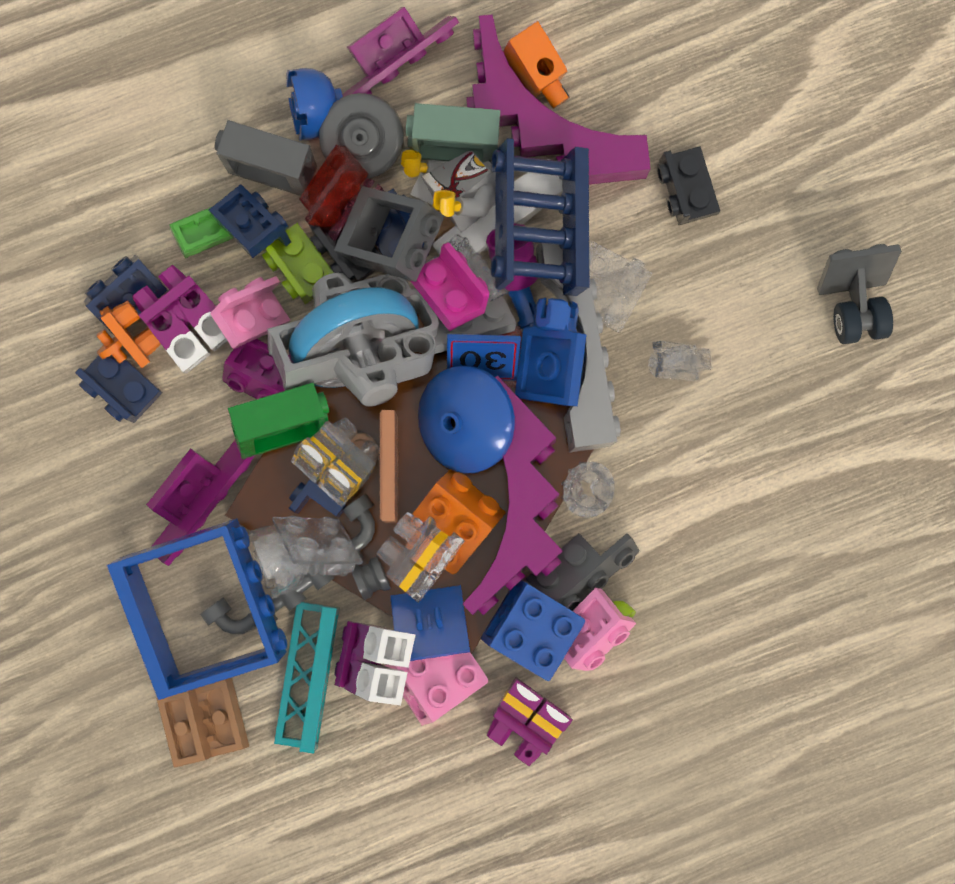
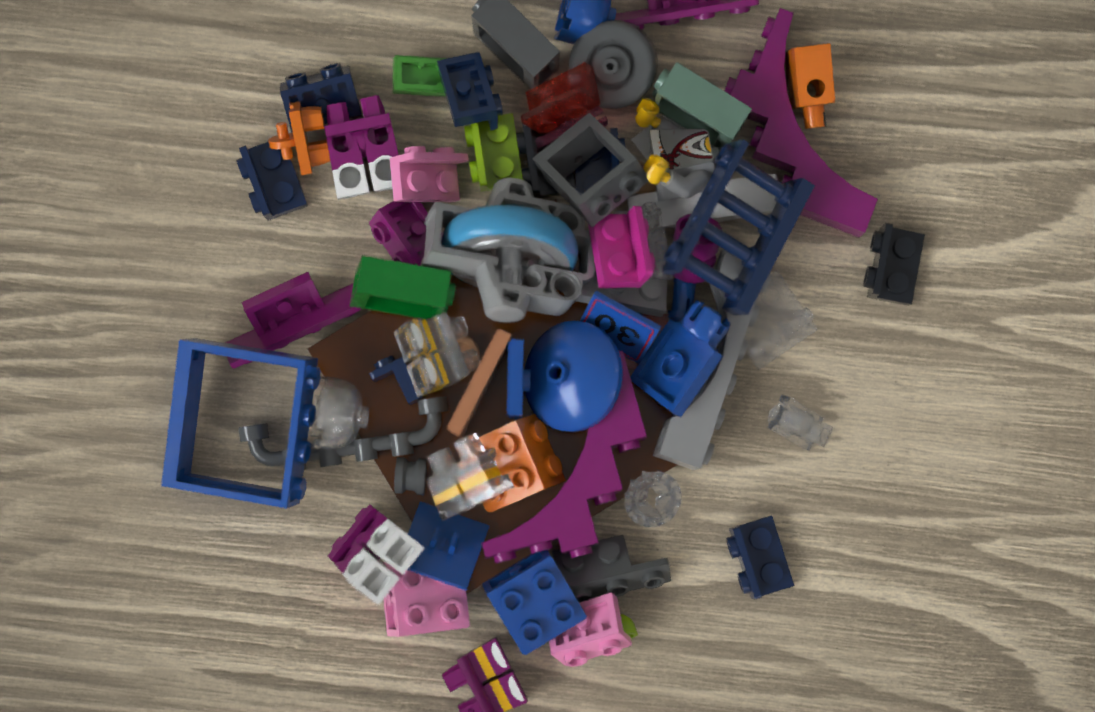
camera: 25 degrees right, 0 degrees up
(203, 723) = (189, 528): medium nougat slope -> none
(316, 546) = (376, 421): clear hinge -> none
(319, 678) = (315, 544): teal fence -> none
(420, 446) = (517, 379): none -> blue plate
(705, 492) = (760, 557): none -> dark blue bracket
(854, 273) = (1006, 427): dark grey plate -> none

